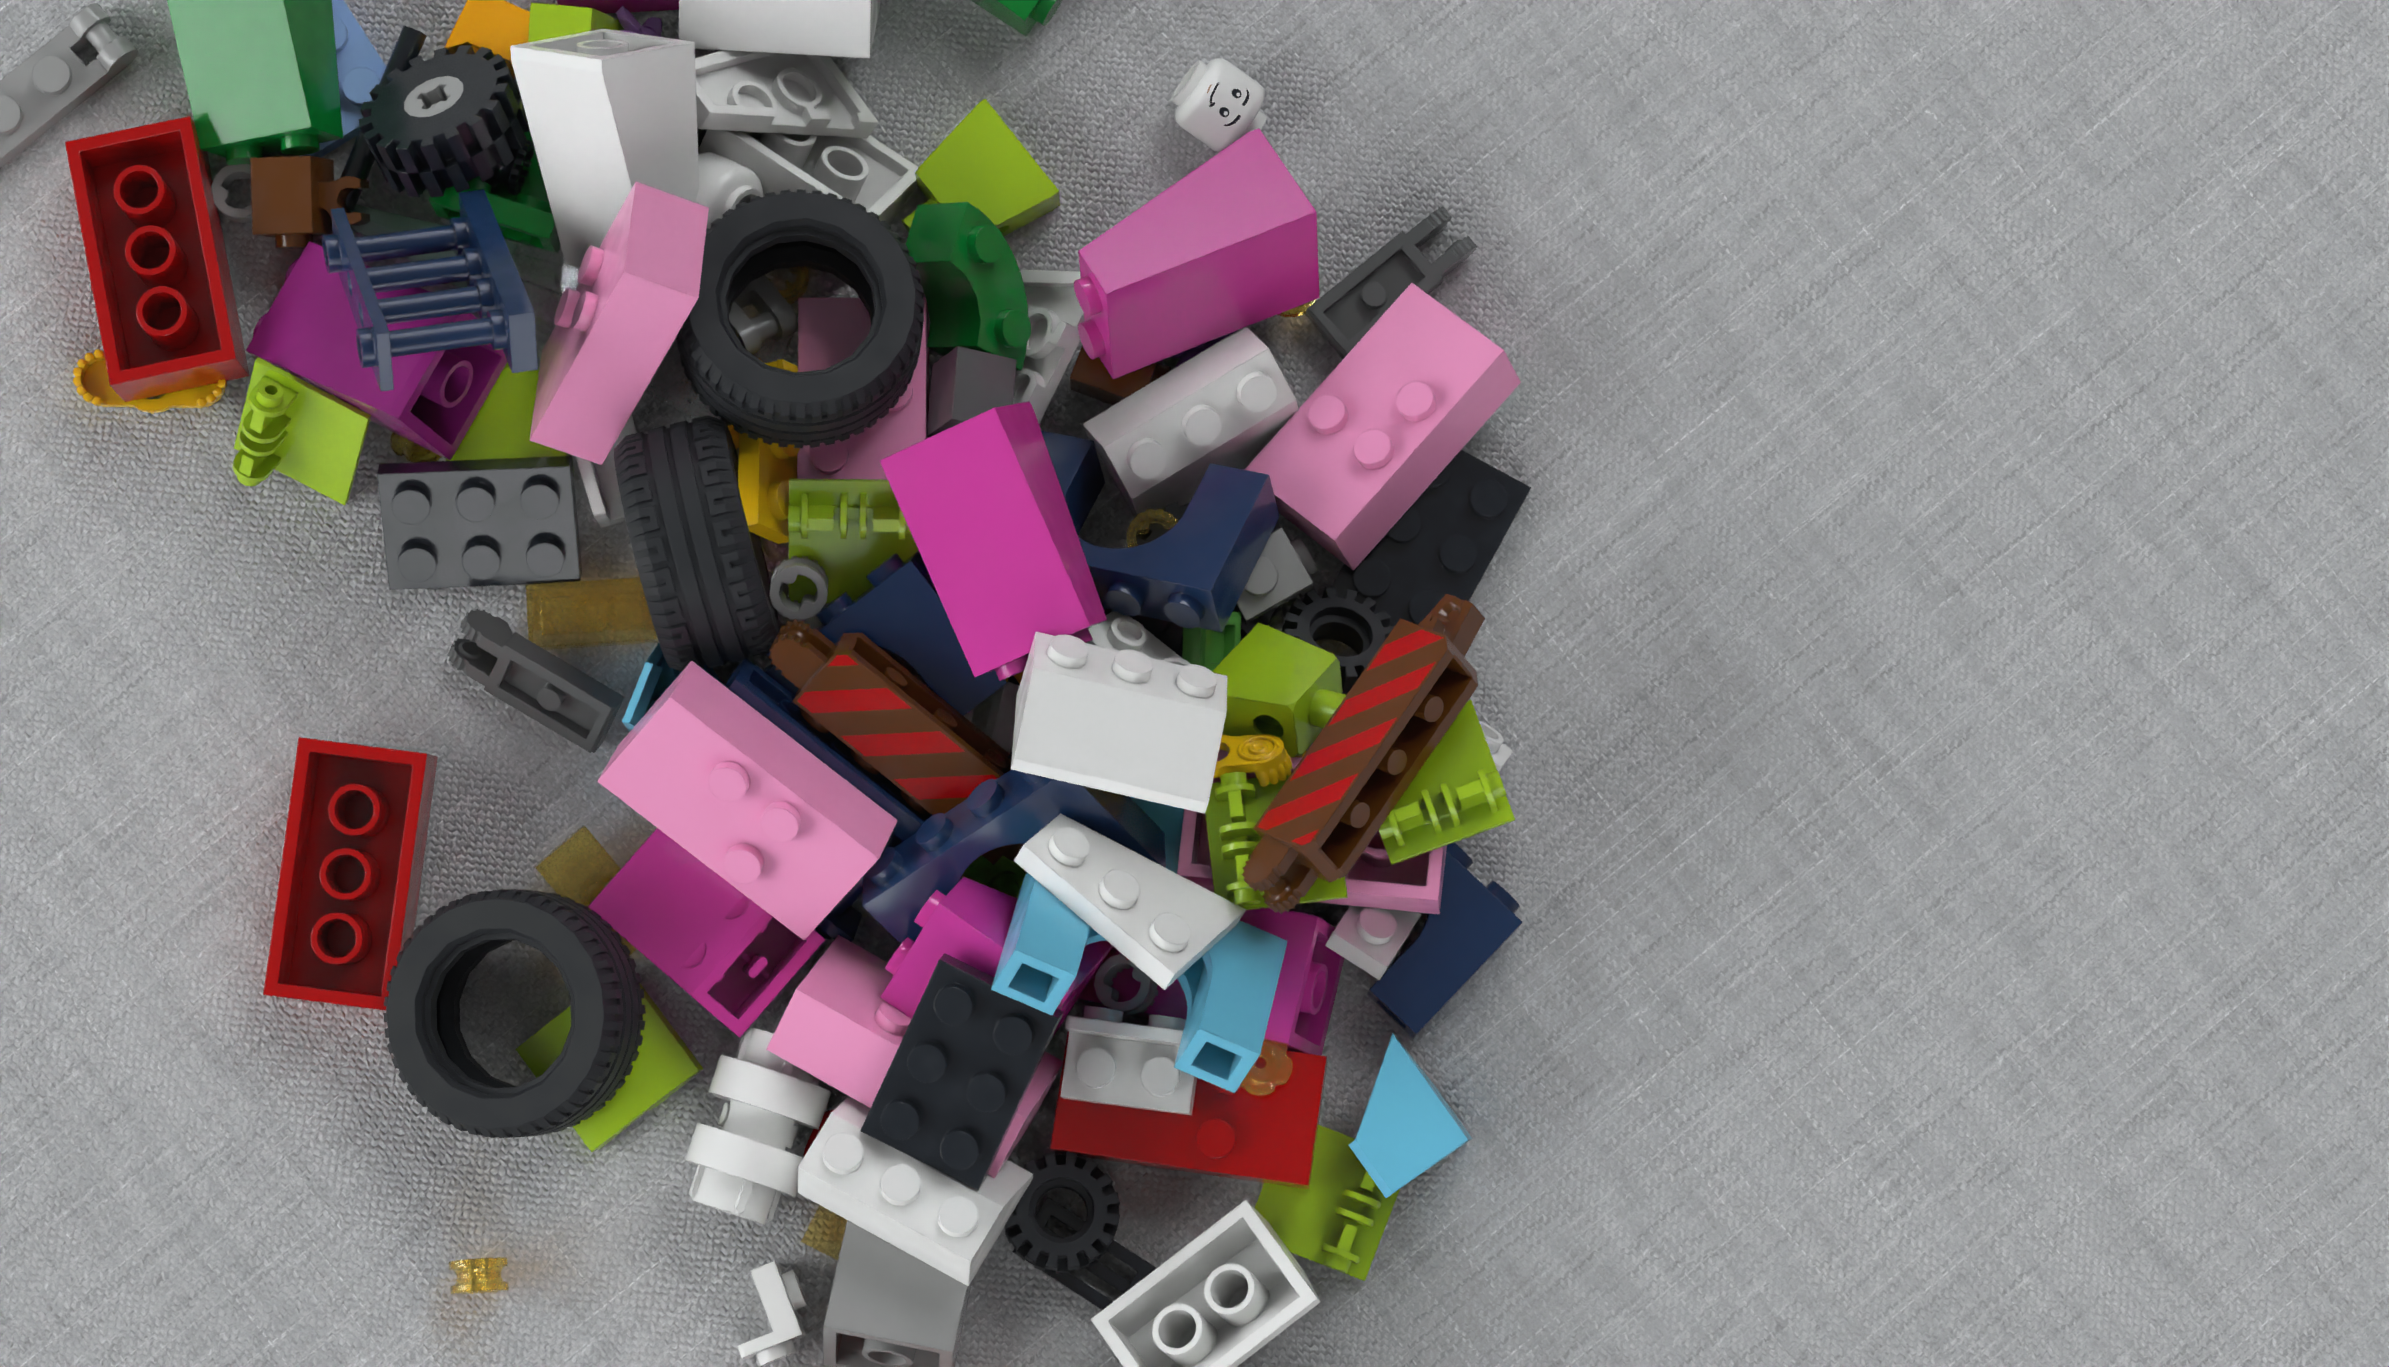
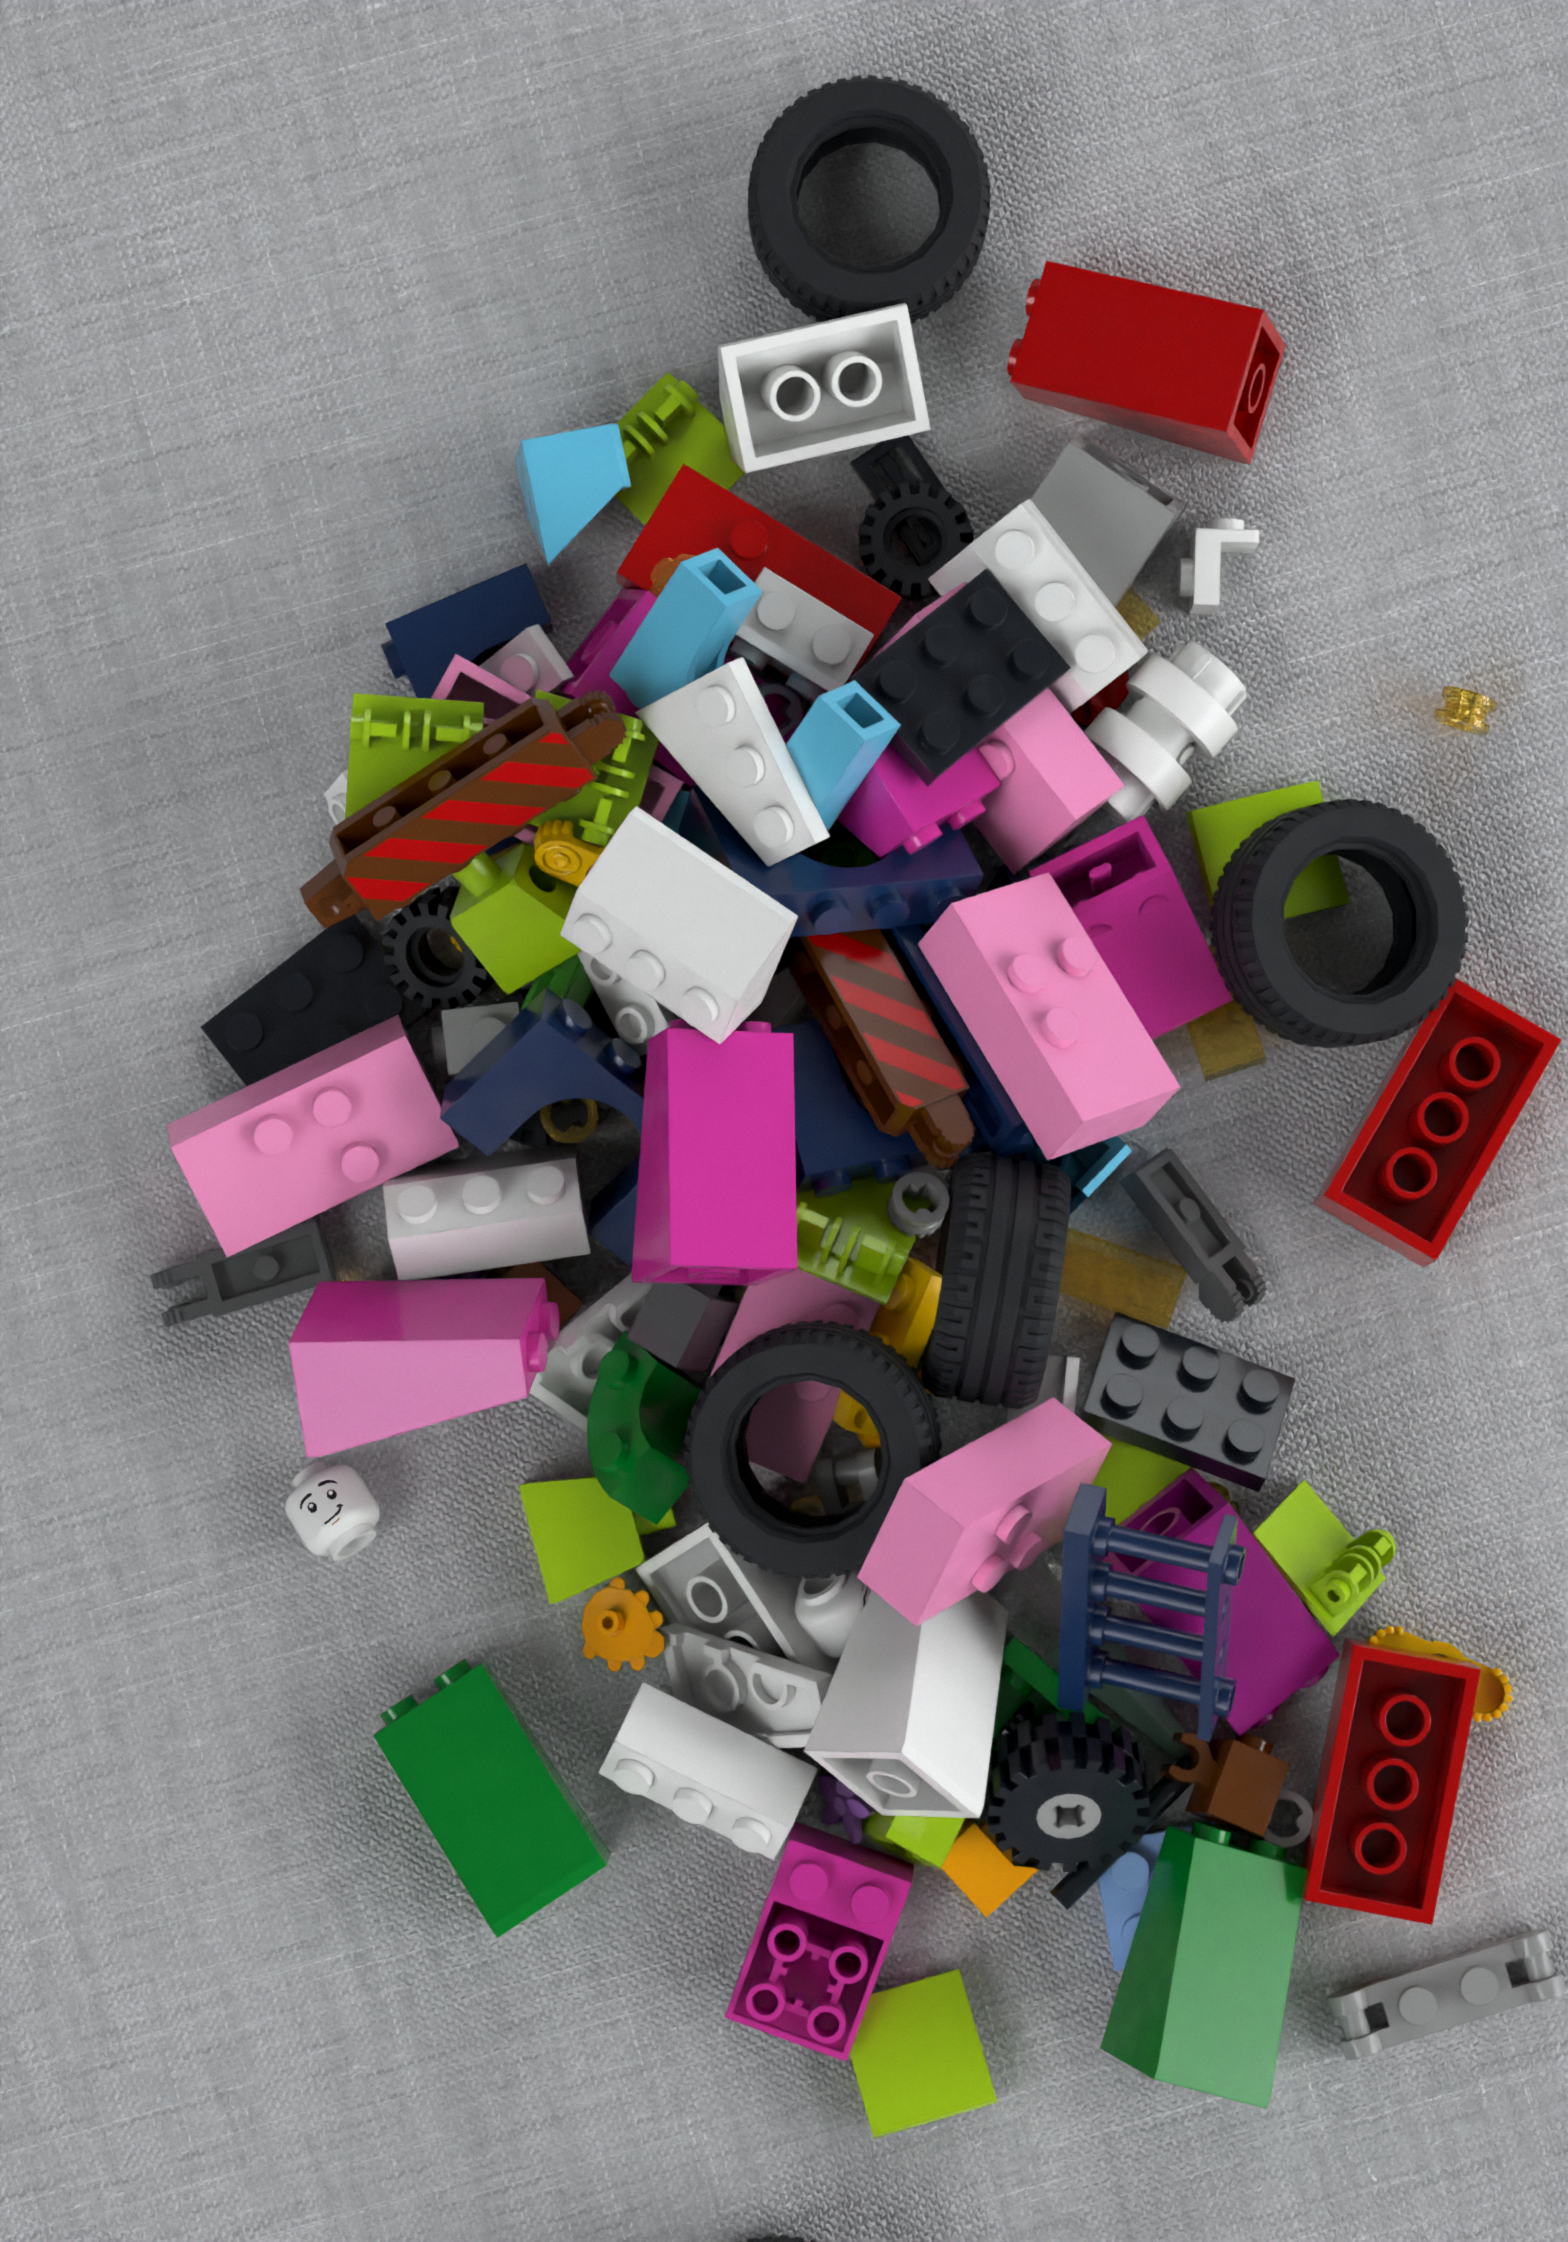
camera: 155 degrees left, 5 degrees up
(913, 111) = (621, 1627): none -> light orange piece

